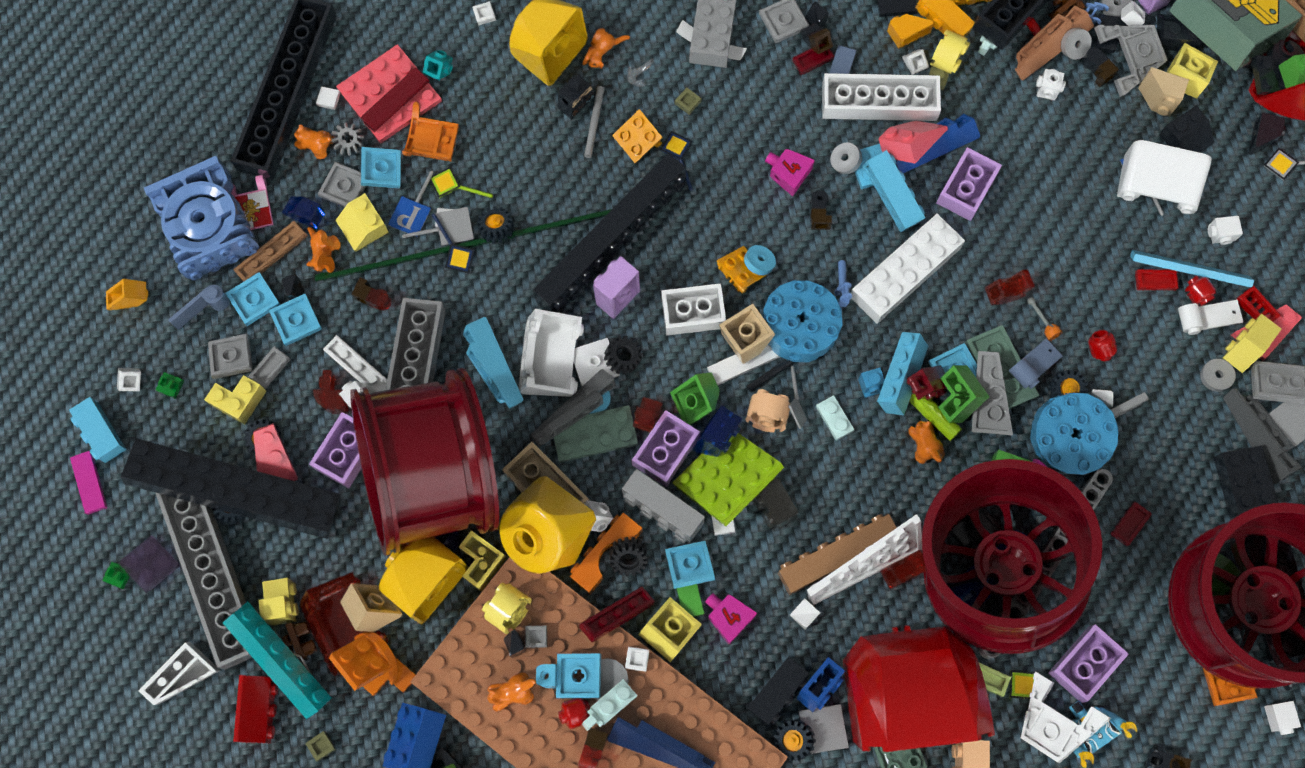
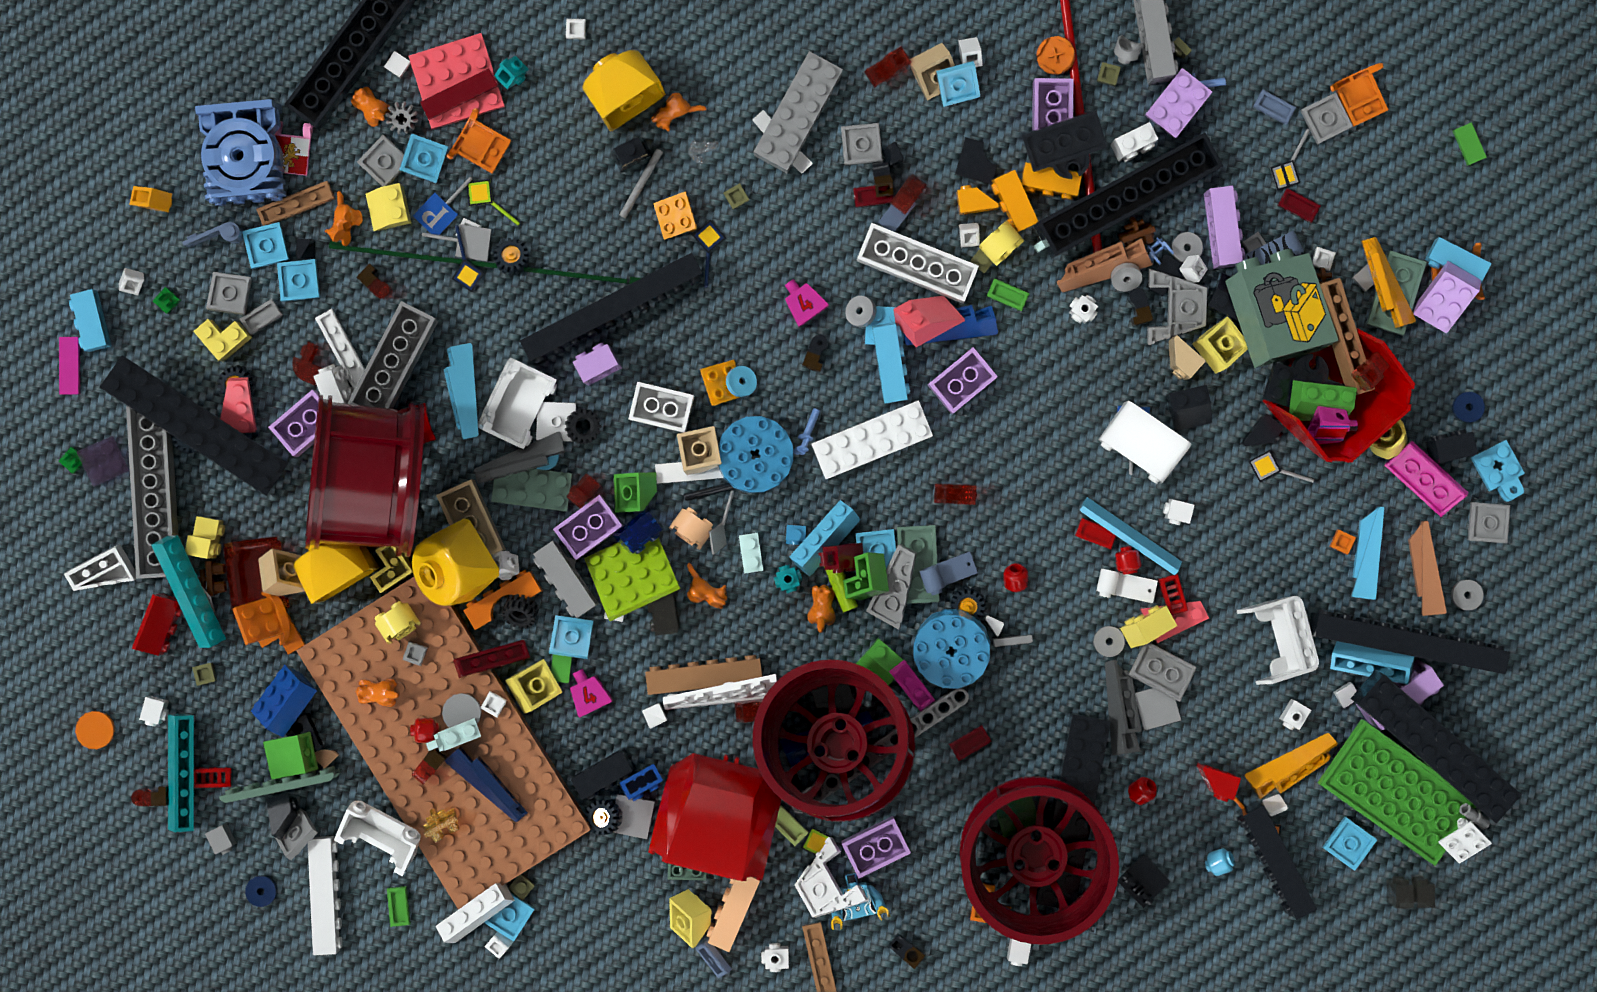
camera: 25 degrees right, 15 degrees up
(304, 211) = (338, 174): clear blue slope -> none
(514, 643) = (394, 653): black slope -> none
(562, 676) = (424, 696): medium azure plate -> none
(802, 470) = (702, 590): none -> orange animal
(846, 41) = (908, 194): none -> clear red brick
(880, 433) = (784, 571): none -> teal brick
(974, 99) = (1007, 294): none -> bright green tile
(1051, 331) = (978, 545): hinge -> none

